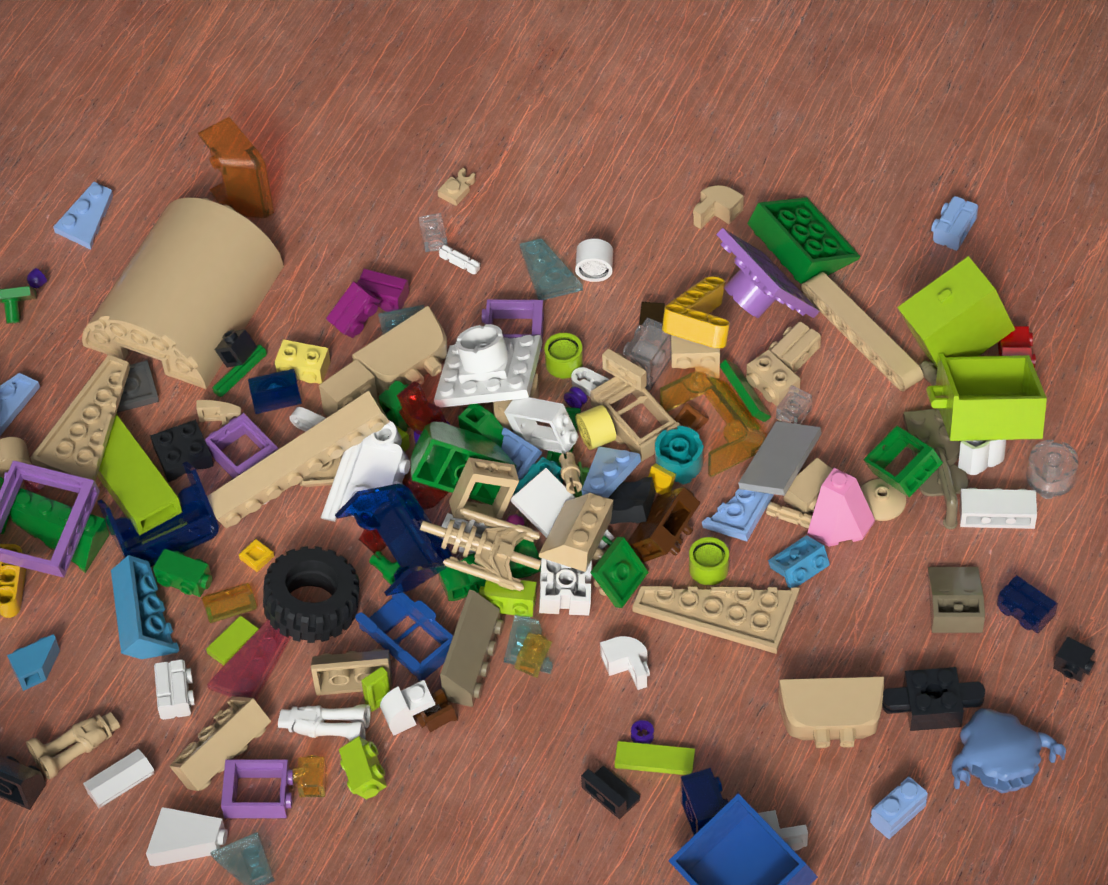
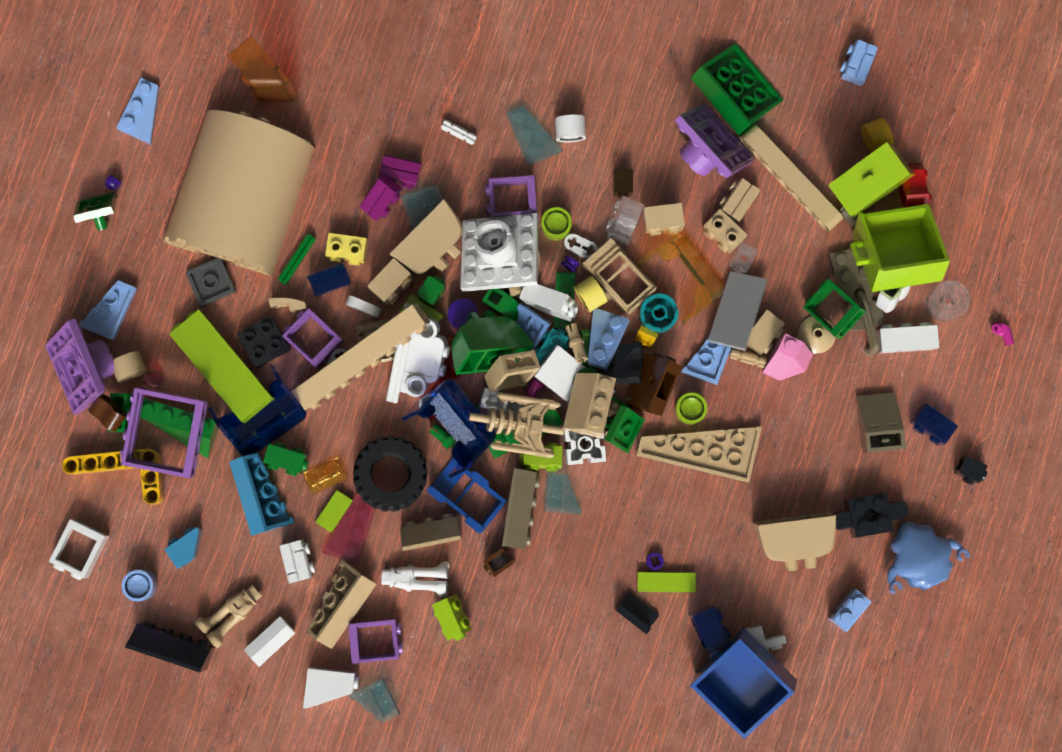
camera: 15 degrees left, 30 degrees up
(83, 431) = (182, 343): tan wing -> none
(235, 348) = (291, 242): black brick -> none
(256, 555) = (339, 431): yellow tile -> none
(311, 776) = (413, 625): clear yellow brick -> none
(375, 688) = (452, 552): lime tile -> none
(401, 705) = (478, 563): white brick -> none
(417, 410) = (453, 304): clear red brick -> none
(432, 232) = (434, 101): clear brick -> none
(456, 189) = (445, 58): tan plate -> none
(533, 654) = (567, 509): clear yellow brick -> none
(624, 369) = (617, 248): tan plate -> none
(626, 654) = (637, 497): white brick -> none
(690, 317) = (657, 205): yellow beam -> none
(691, 418) = (662, 273): dark orange slope -> none
(718, 202) = (665, 56): tan brick -> none
(745, 391) = (703, 245): green tile -> none
(800, 561) = (759, 400): dark azure bracket -> none

